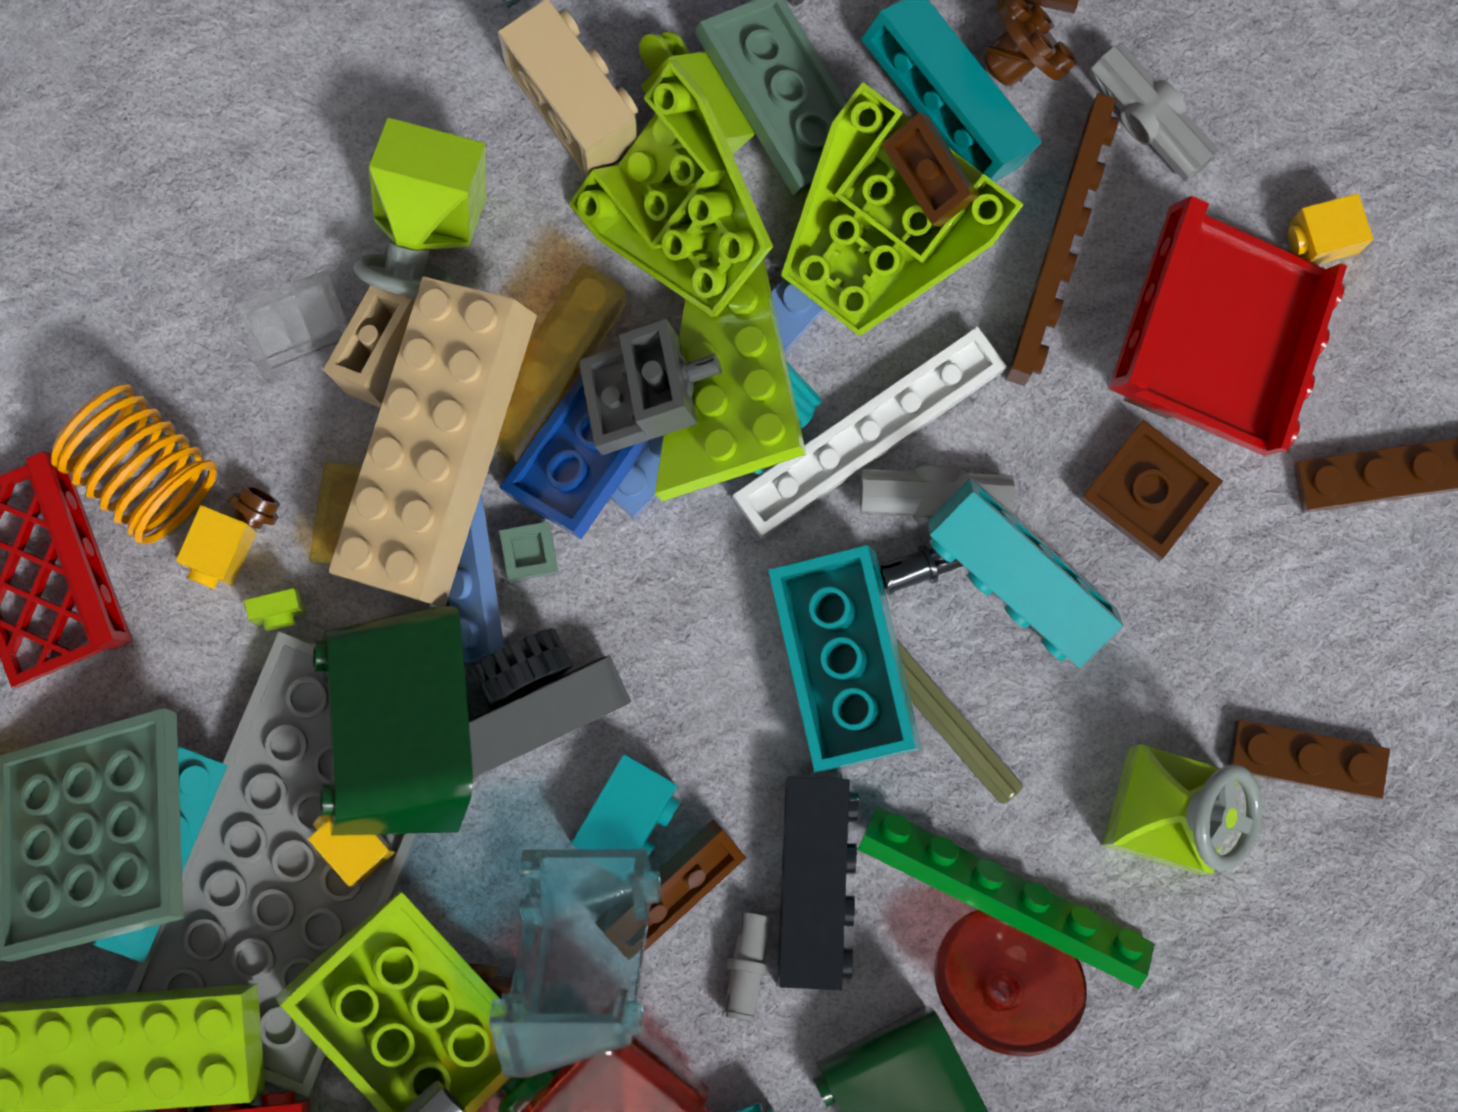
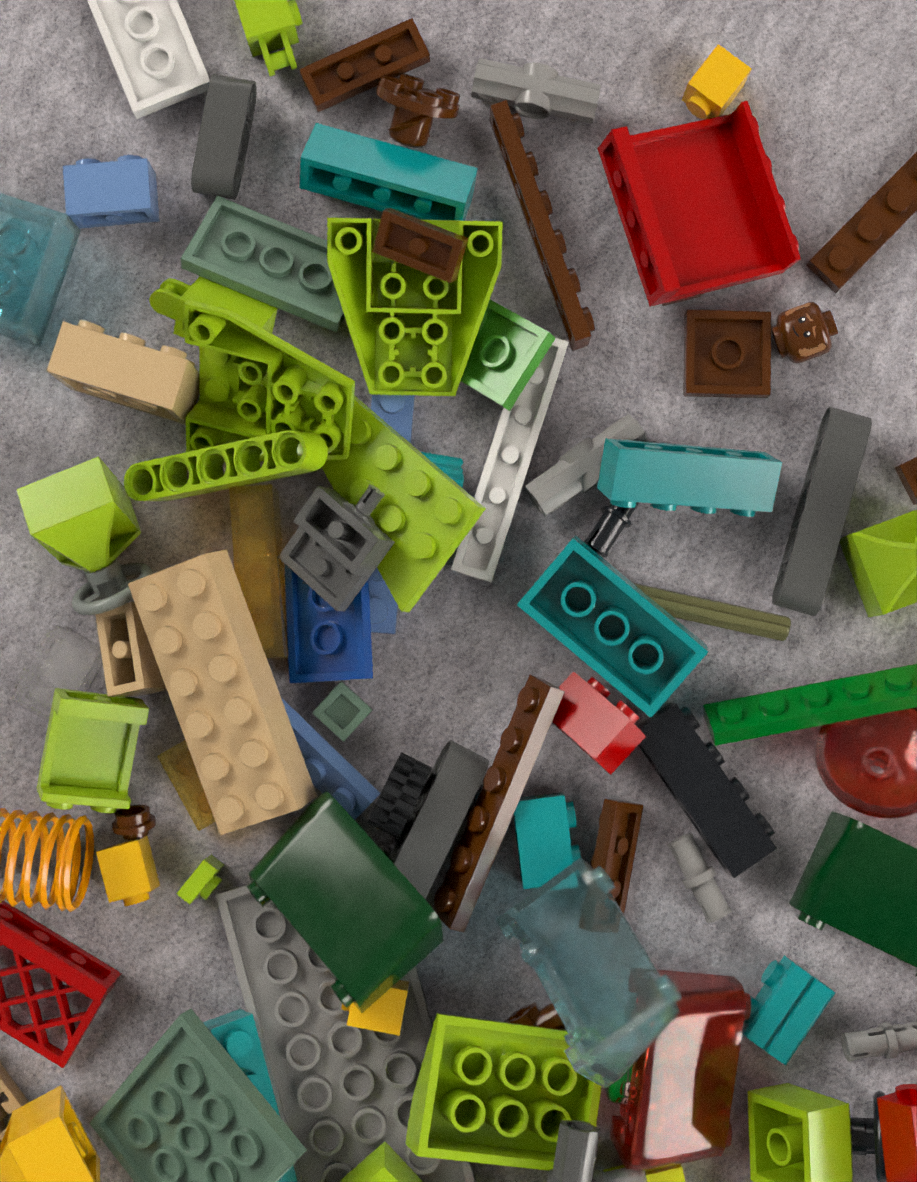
camera: 30 degrees left, 5 degrees up
(268, 408) = (90, 750): none -> lime panel
(532, 210) = (241, 462): none -> lime beam
(605, 746) = (496, 802): none -> reddish brown plate
(757, 736) = (595, 724): none -> brick
(935, 332) = (505, 355): none -> bright green plate
(1130, 706) = (821, 511): none -> dark grey beam
(1240, 524) = (804, 332): none -> reddish brown head

